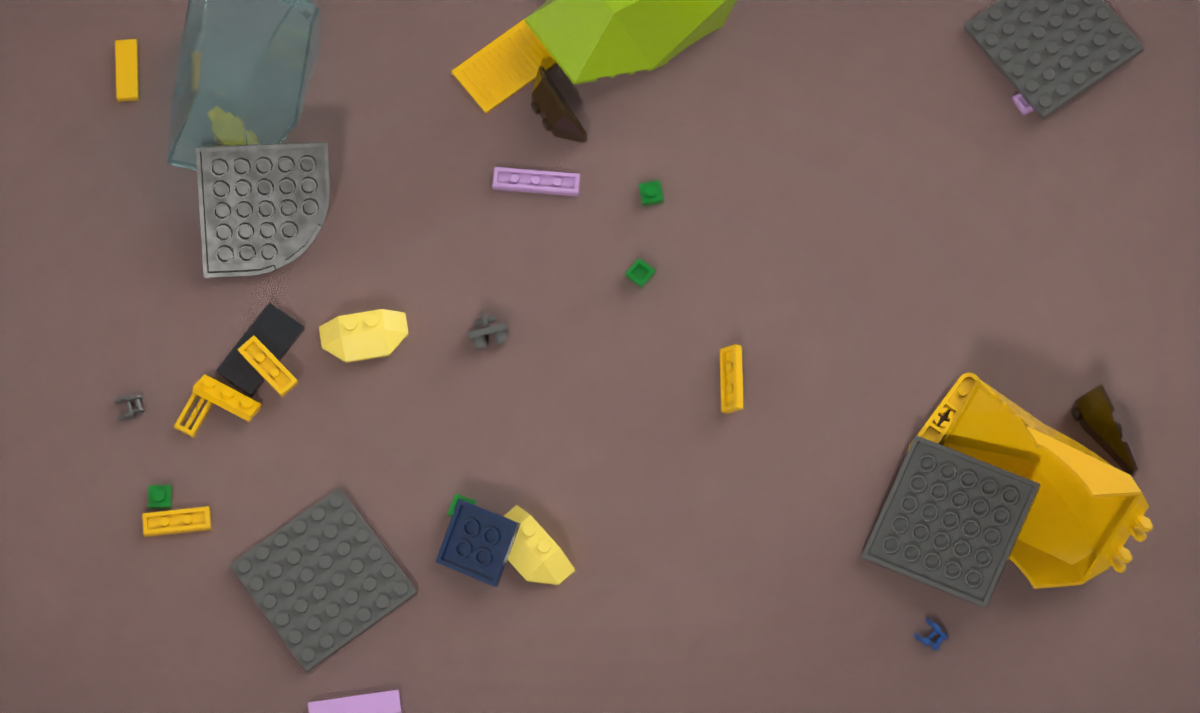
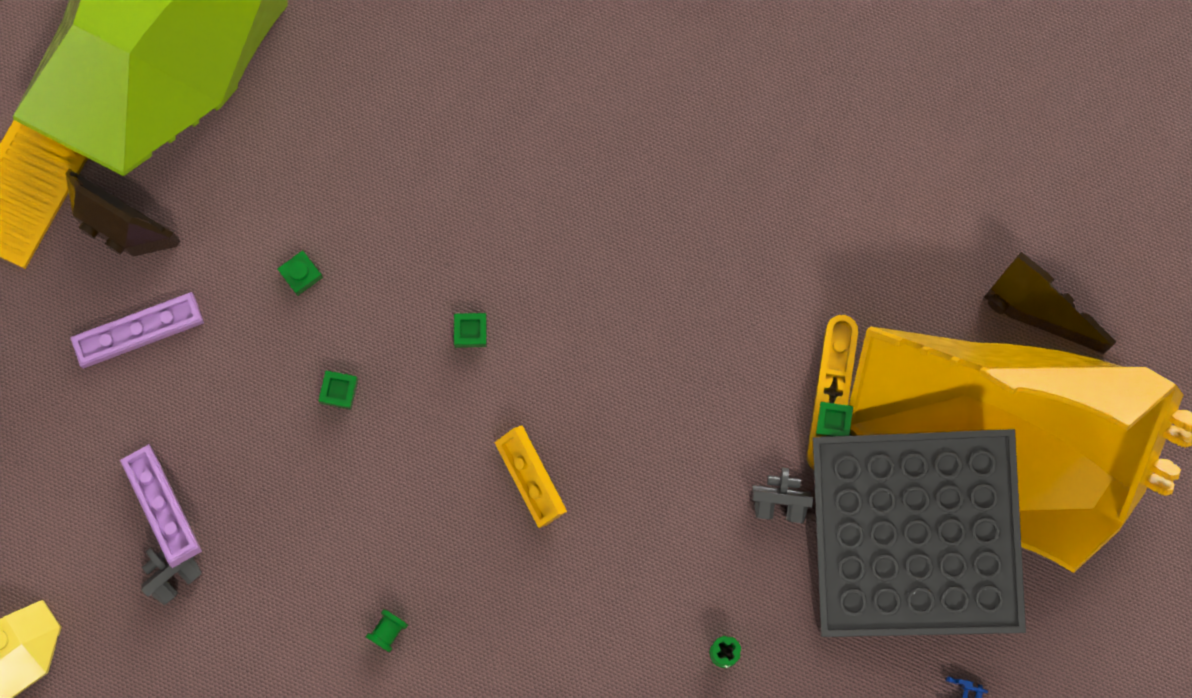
camera: 30 degrees left, 5 degrees up
(501, 290) = (160, 506): none -> lavender tile
(600, 427) = (386, 630): none -> green bush
(738, 275) = (470, 330): none -> green plate
(792, 541) = (715, 649): none -> green bush
(869, 460) = (796, 500): none -> dark grey hips
(935, 431) = (834, 420): none -> green plate

